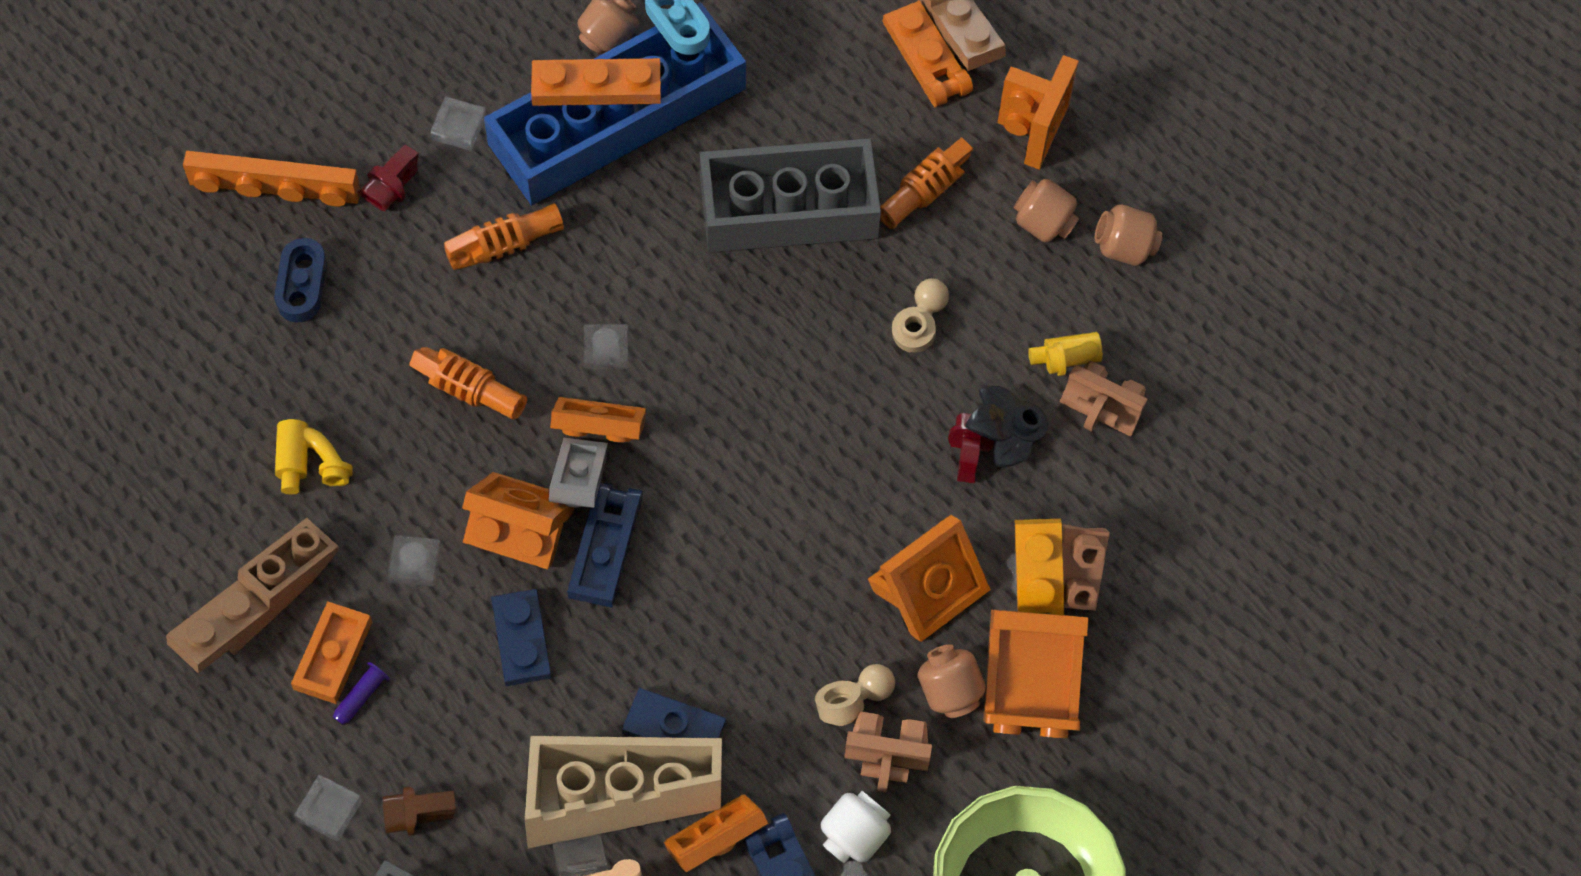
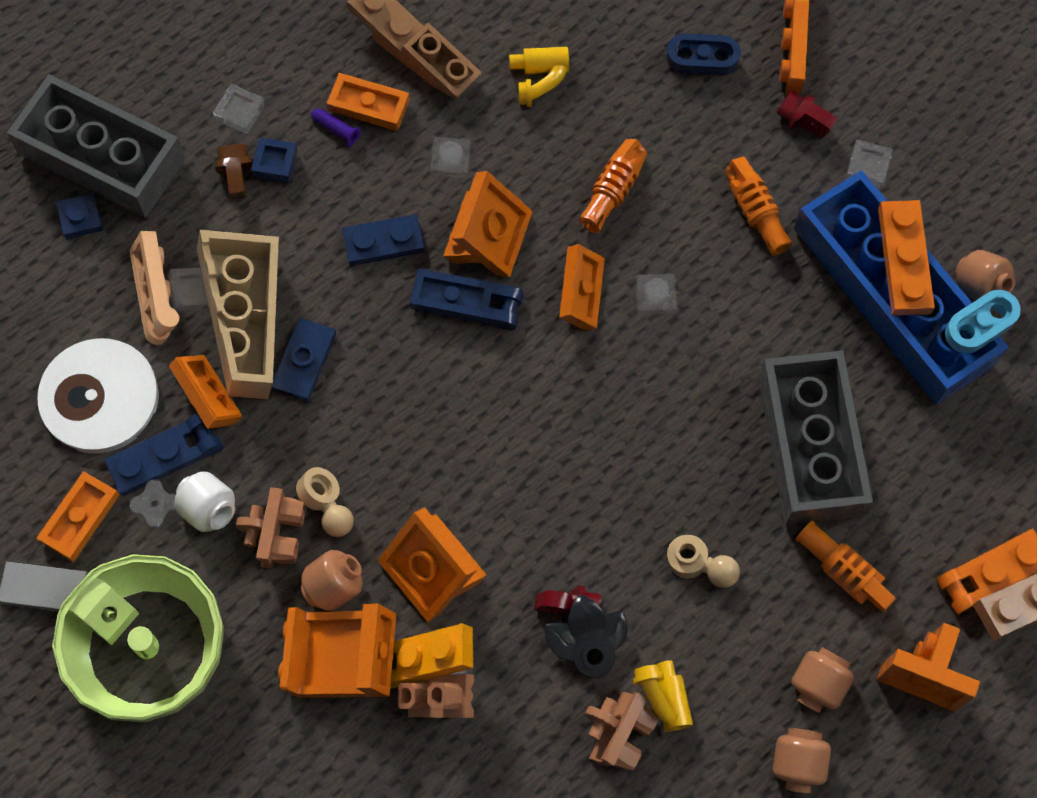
camera: 90 degrees right, 5 degrees up
(405, 762) = (274, 160): none -> dark blue plate
(578, 472) = (525, 270): light grey plate -> none

